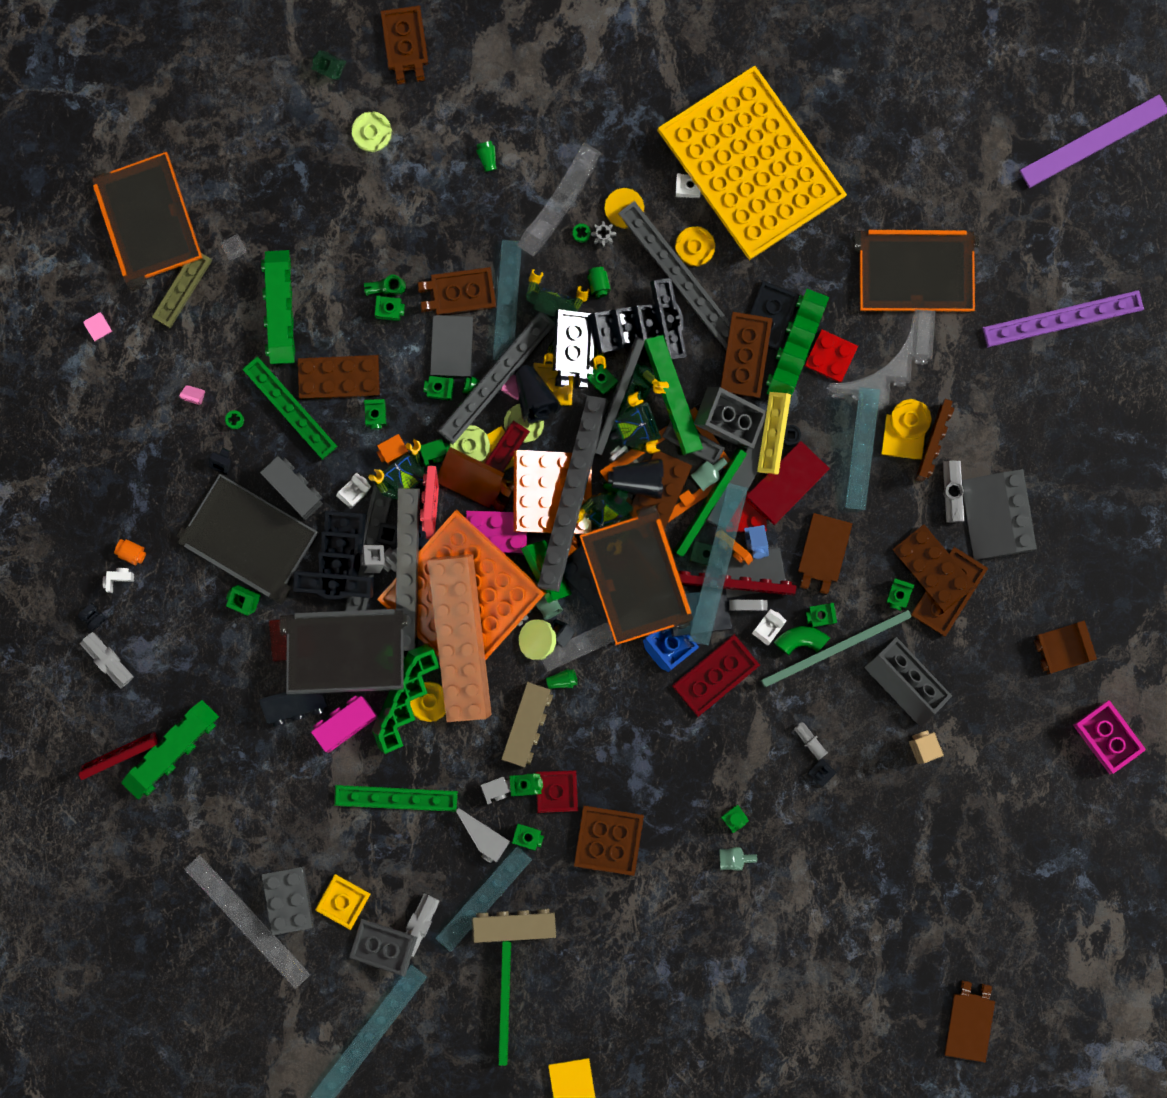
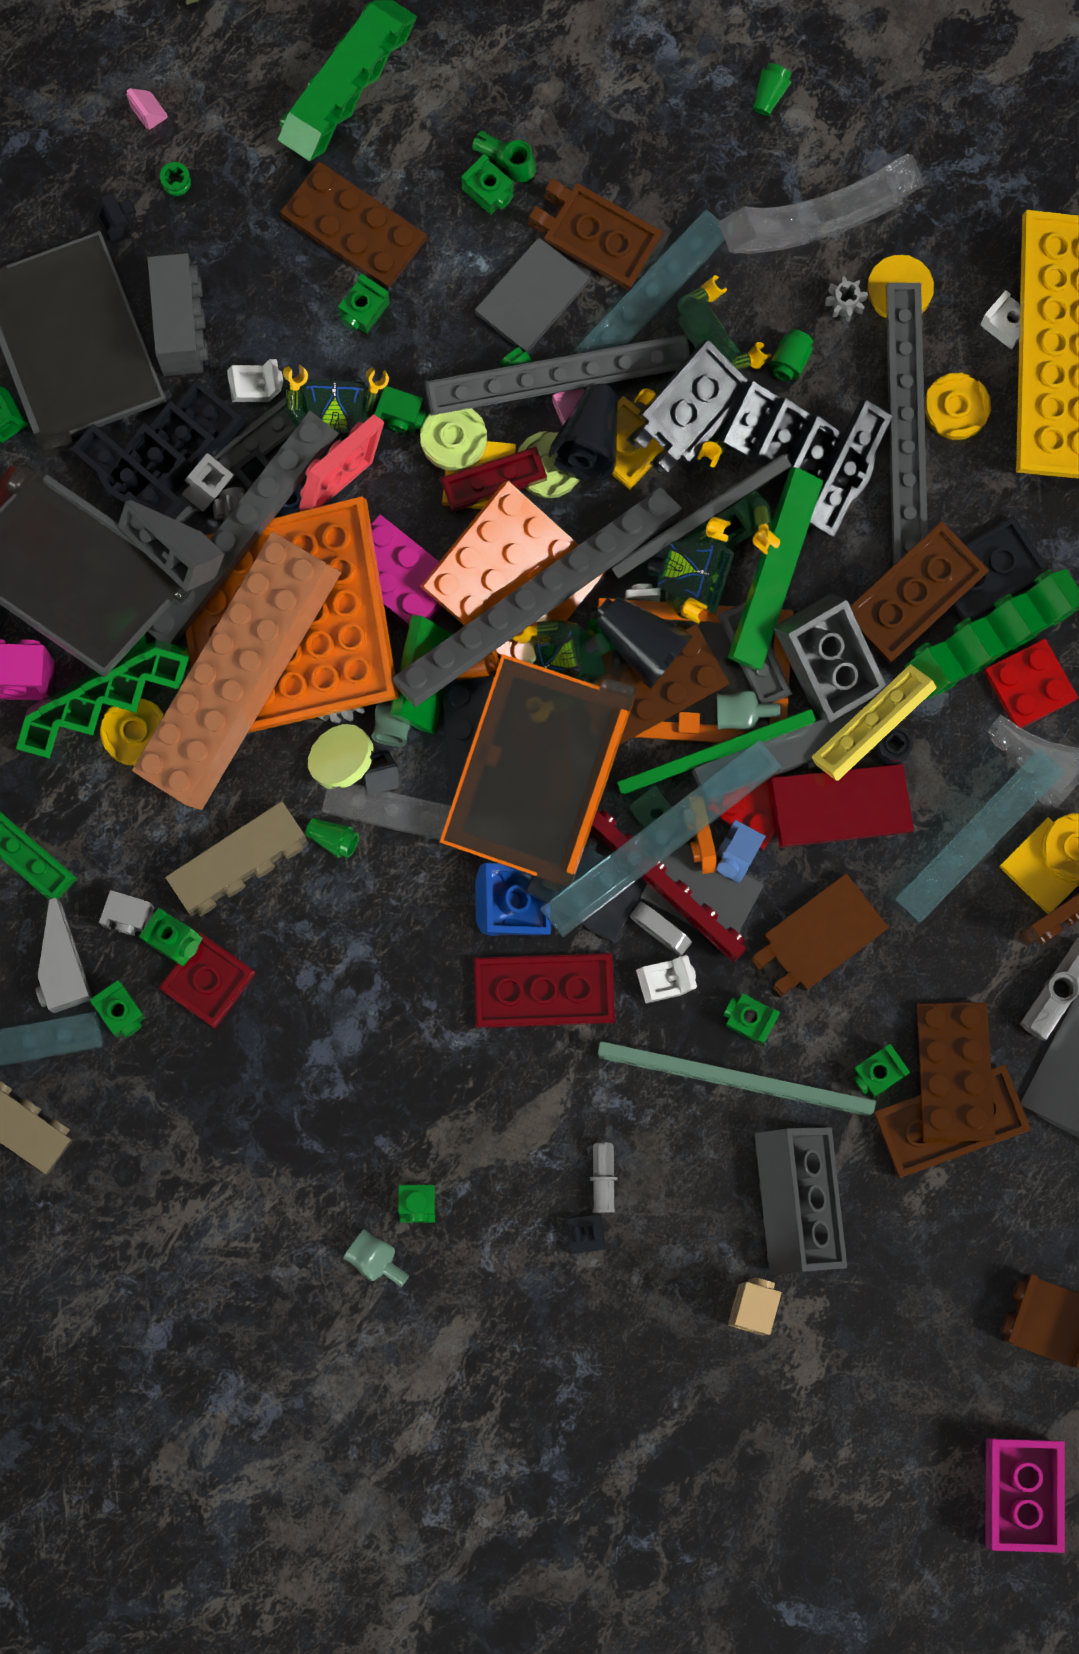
camera: 35 degrees right, 5 degrees down
(290, 408) = (258, 216): green plate -> none
(383, 602) = (173, 546): none -> dark grey slope
(391, 449) = (347, 364): orange brick -> none
(445, 392) = (473, 346): green brick -> none
(474, 480) = (423, 484): reddish brown tile -> none
(587, 232) = (823, 268): green bush -> none
(605, 386) = (694, 495): green brick -> none
(609, 840) = (223, 1100): reddish brown plate -> none
(800, 637) = (700, 1026): green cylinder -> none

